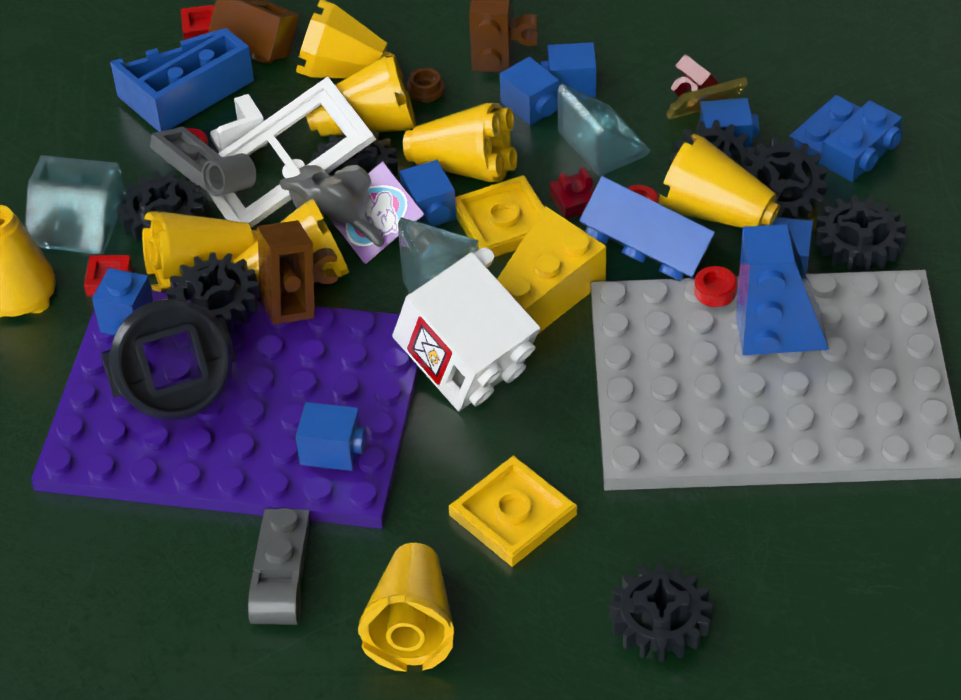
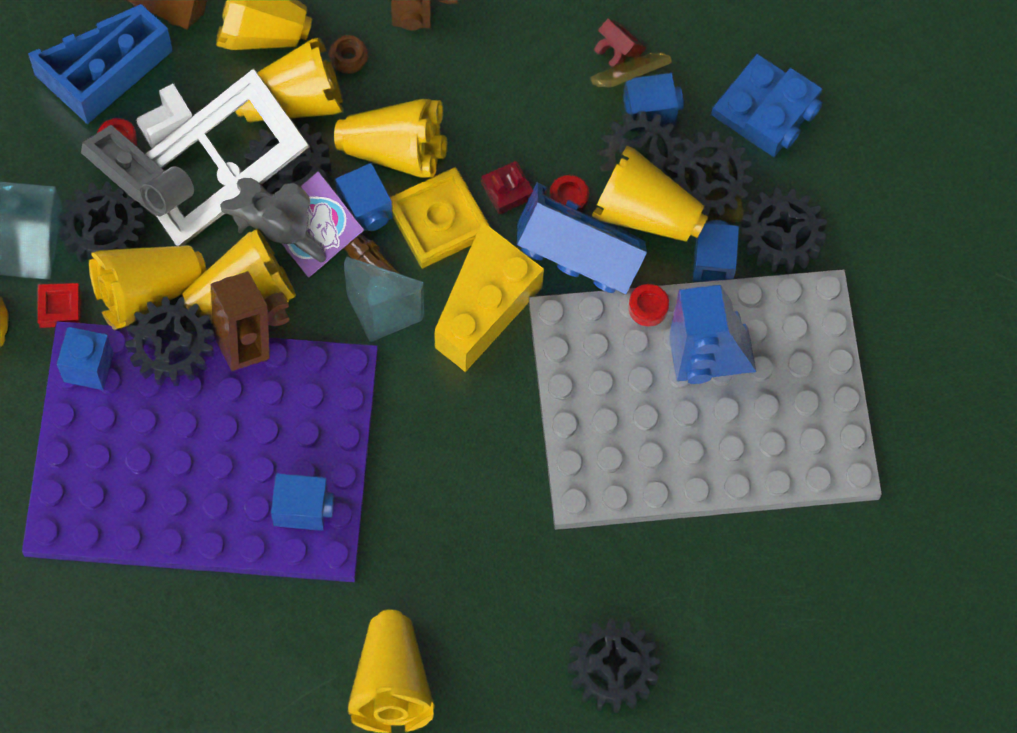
camera: 10 degrees left, 20 degrees up
(129, 370) = (131, 402): black piece -> none
(279, 567) = (266, 633): dark grey plate -> none
(466, 331) = (420, 379): white container -> none
(512, 510) = (473, 559): yellow tile -> none
(529, 91) = (454, 61): blue brick -> none
(573, 66) = (493, 33): blue brick -> none
(597, 132) = (526, 110): clear light blue slope -> none

